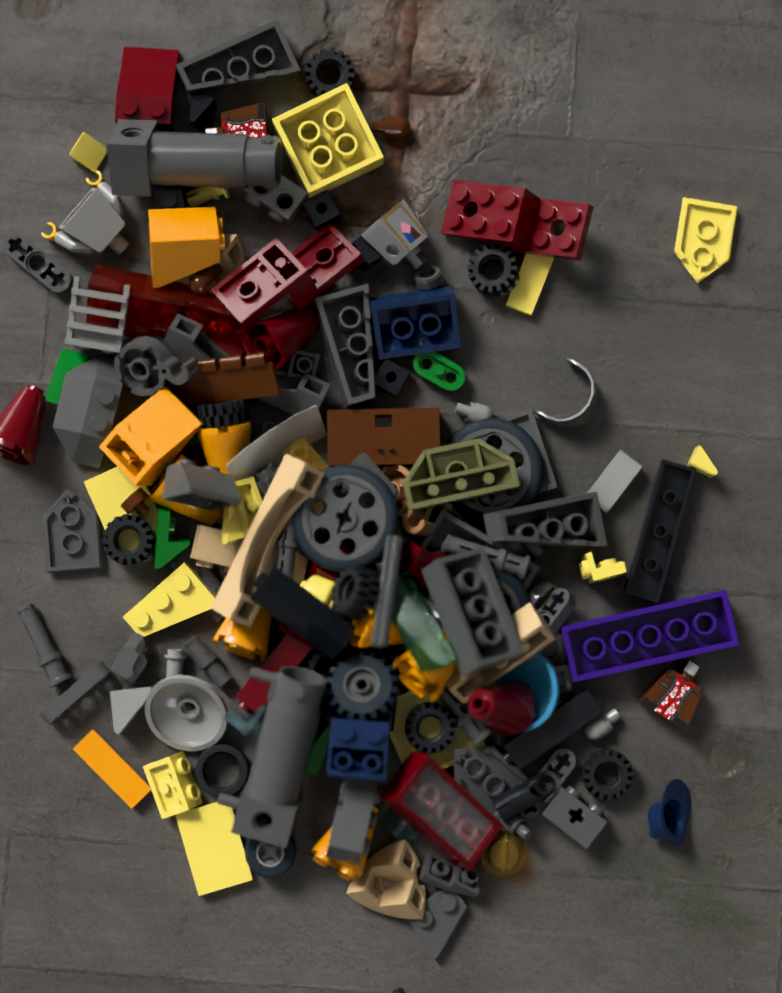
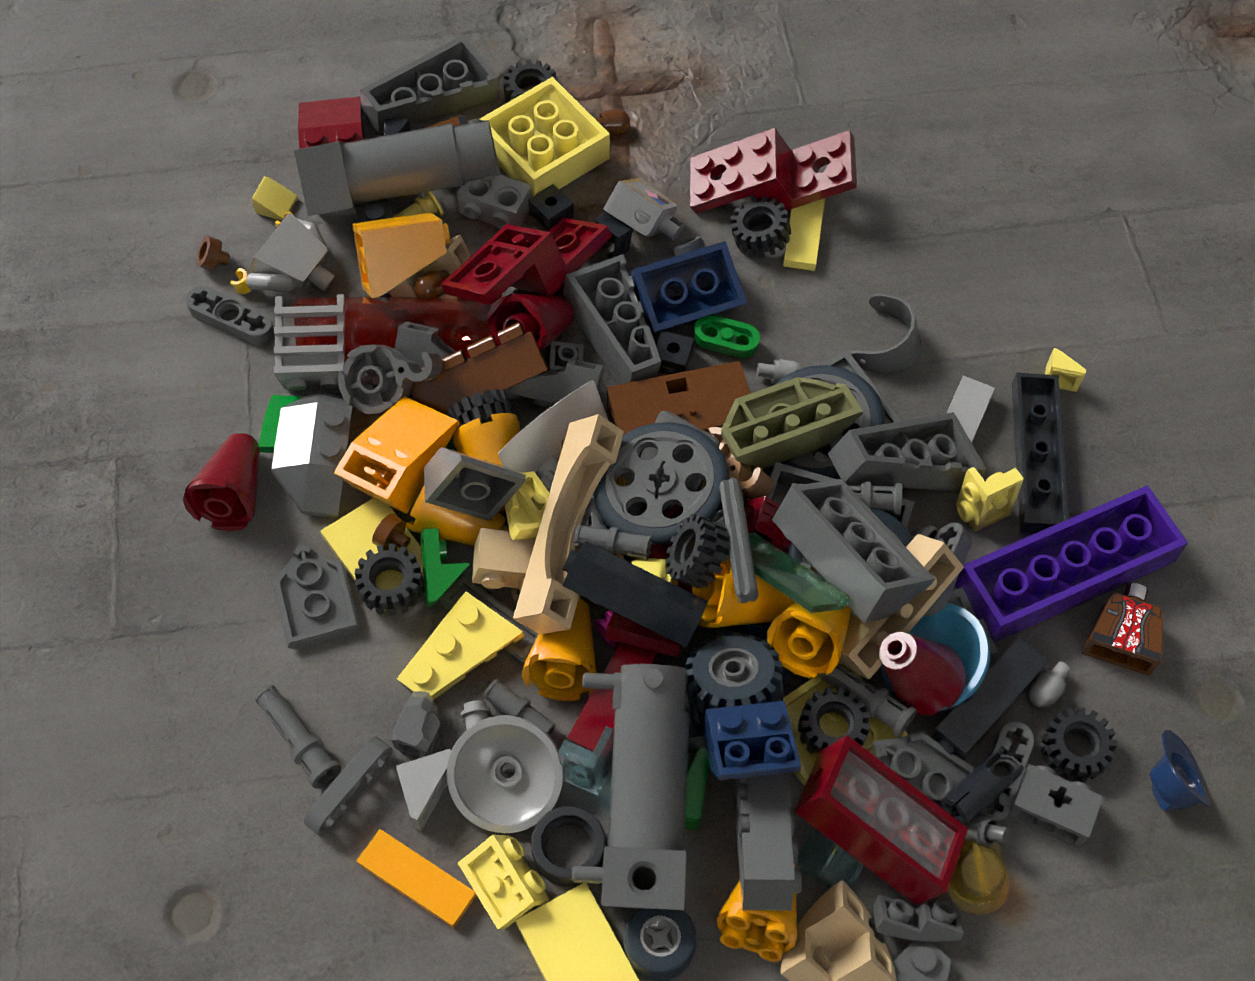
camera: 10 degrees left, 25 degrees down
(28, 200) = (211, 253): none -> reddish brown tile
(297, 562) = (614, 541): none -> dark grey pin
(704, 236) = (980, 163): light yellow tile -> none

